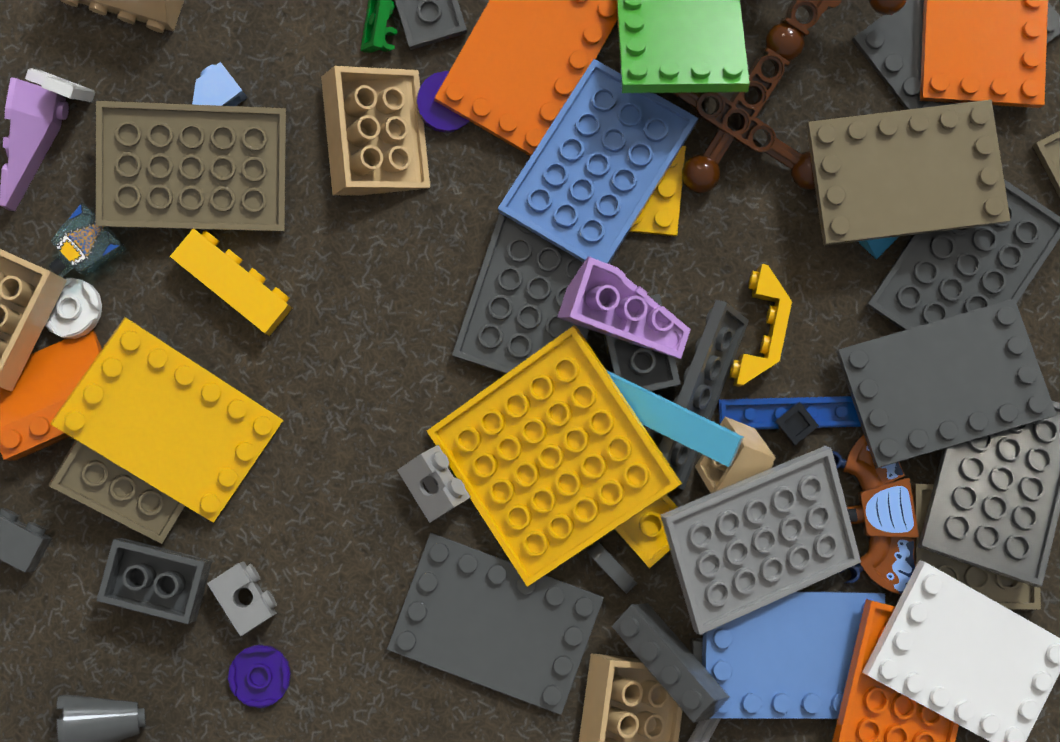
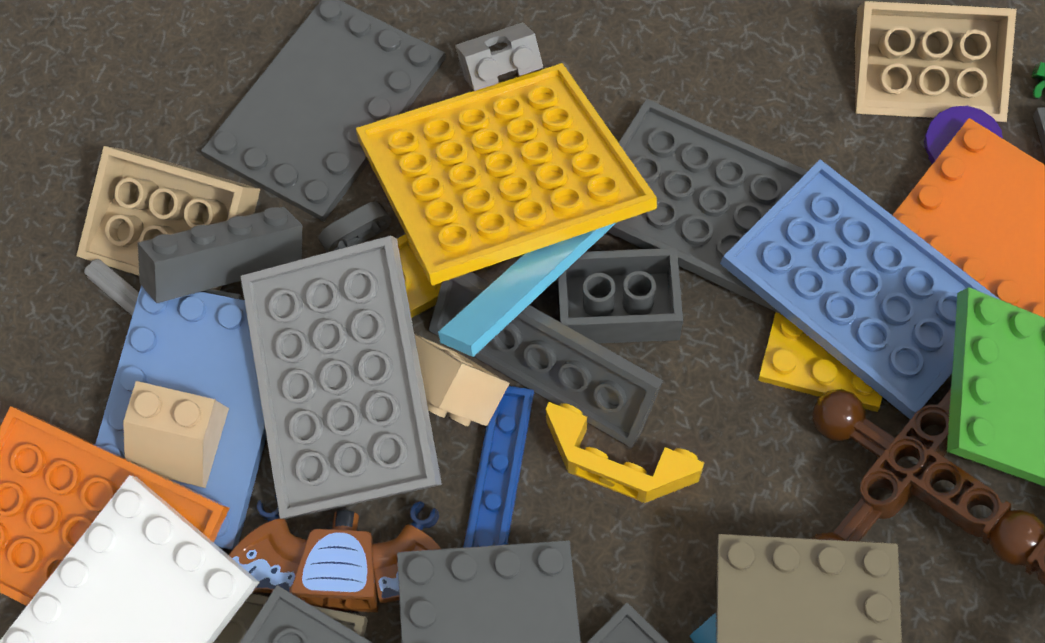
camera: 110 degrees right, 20 degrees down
(613, 305) = (671, 253): lavender wedge -> none
(796, 423) = (481, 470): black plate -> none
(818, 656) = (173, 432): none -> tan slope

